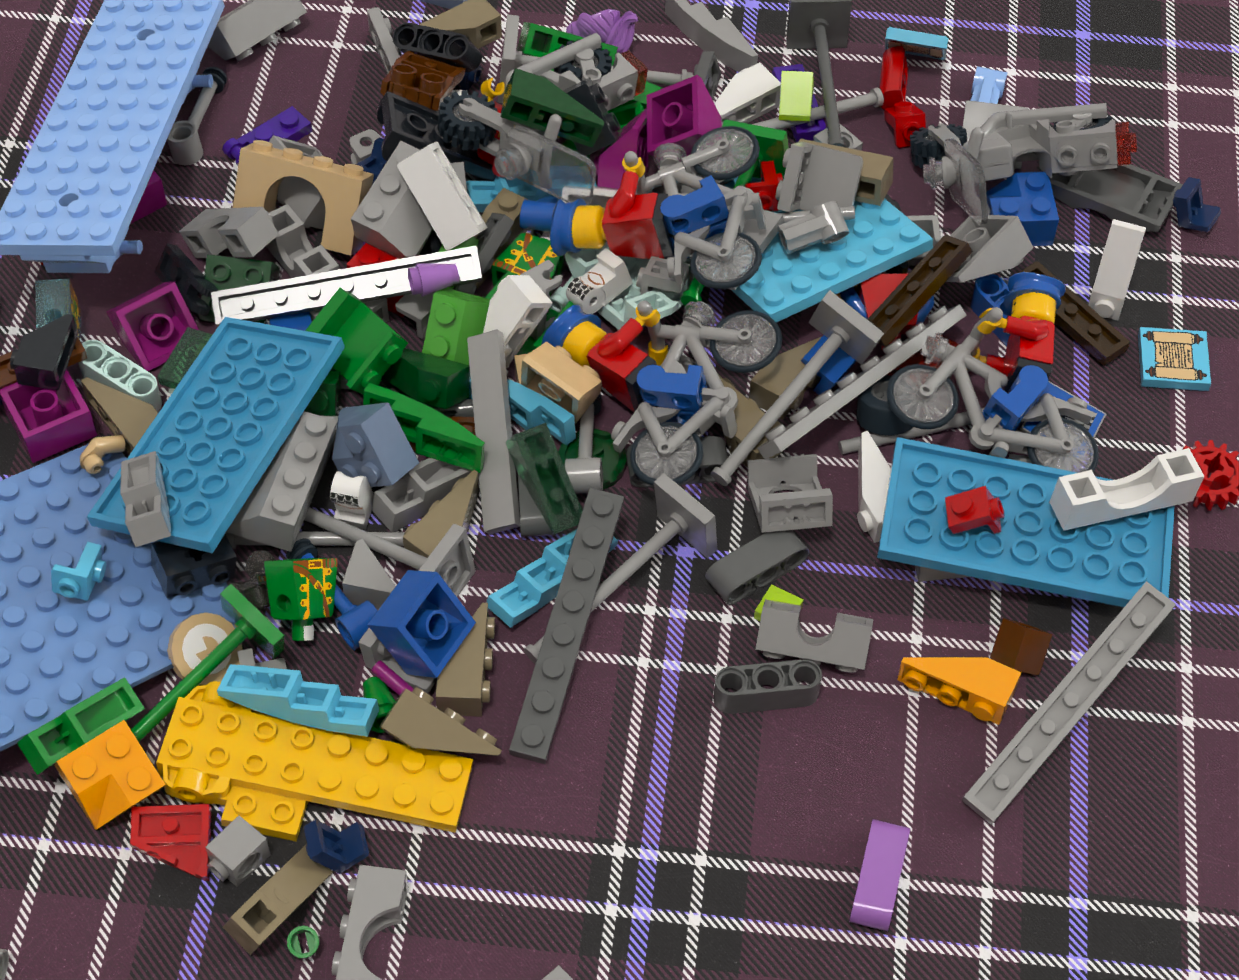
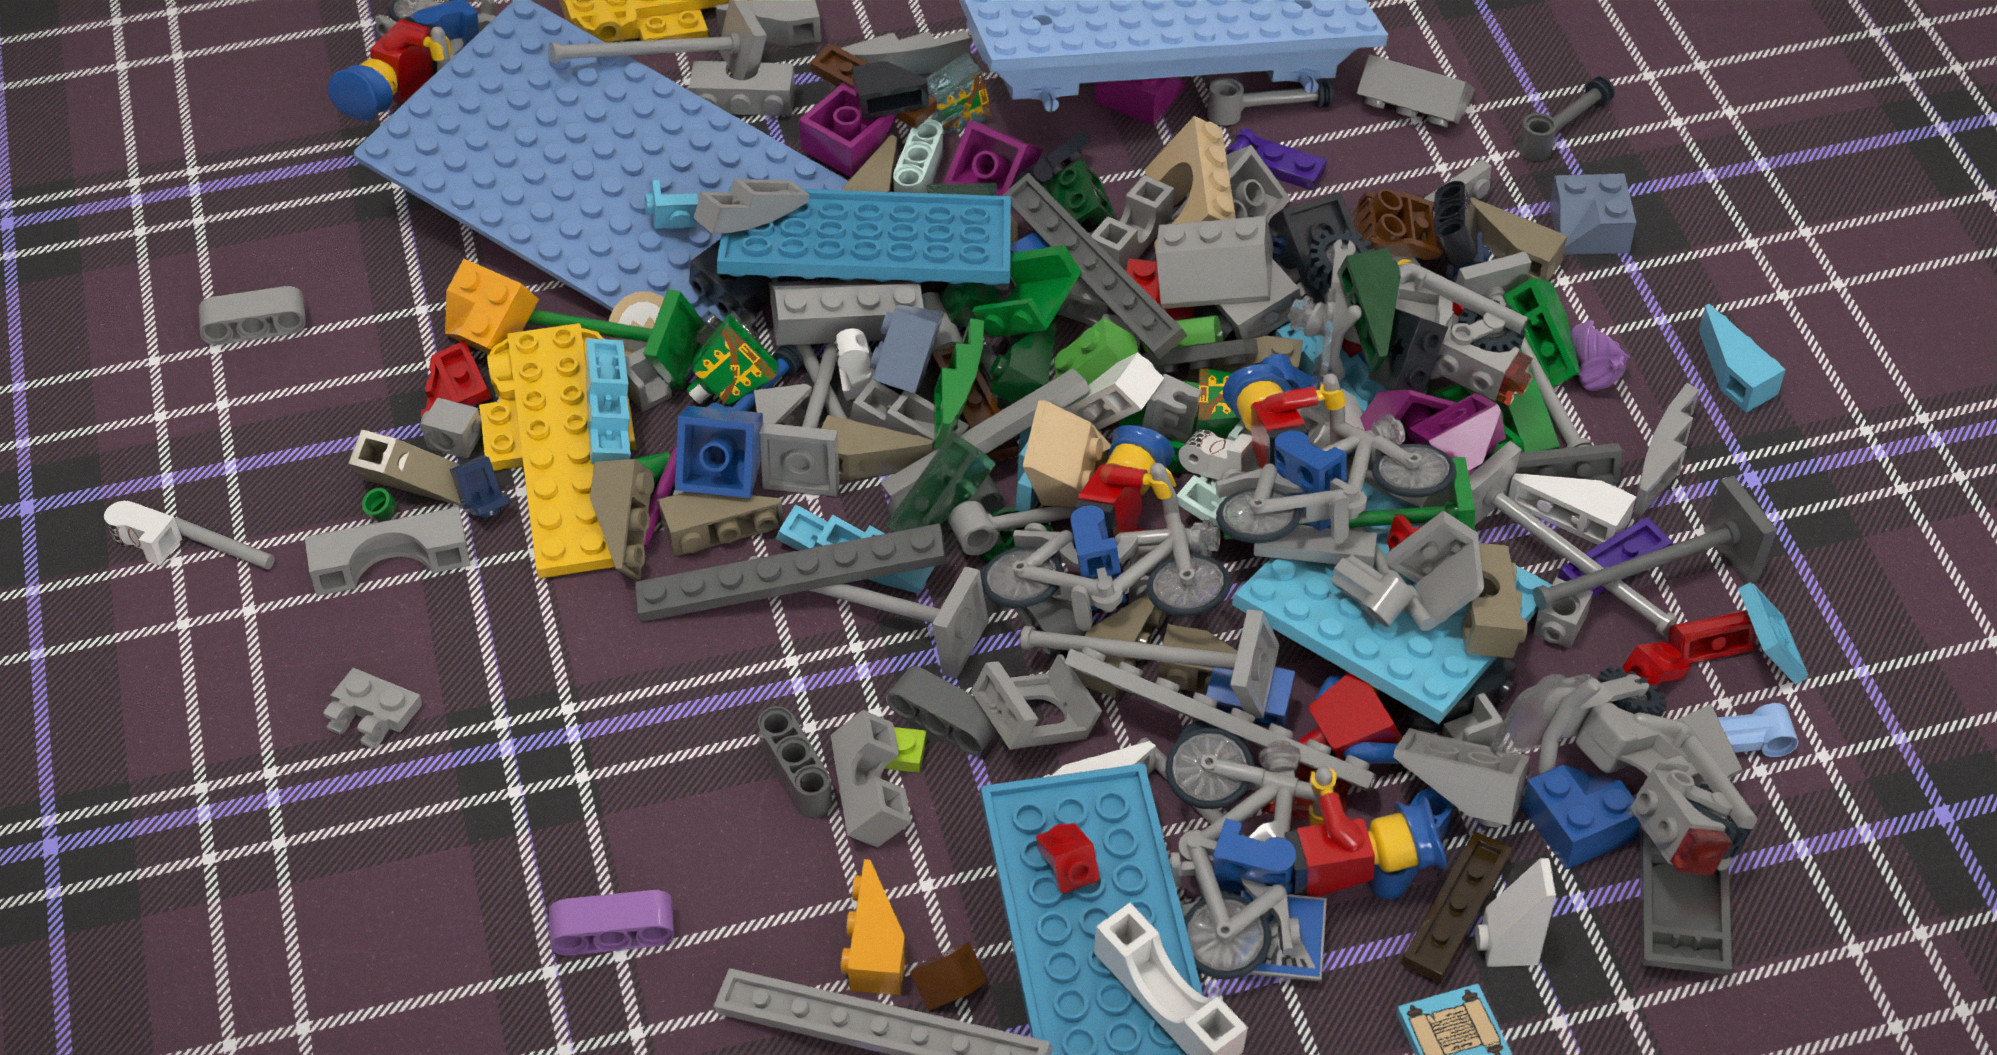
camera: 70 degrees right, 5 degrees down
(80, 725) = (537, 274): green slope -> none
(92, 456) = (819, 175): tan arm -> none
(238, 229) = (1116, 163): light grey arch -> none
(430, 278) = (1121, 309): medium lavender cone -> none
(441, 196) = (1229, 279): white panel -> none
(796, 95) = (1598, 539): lime slope -> none
(919, 287) = (1361, 720): dark brown plate -> none
(1190, 207) = (1703, 990): dark blue bracket -> none

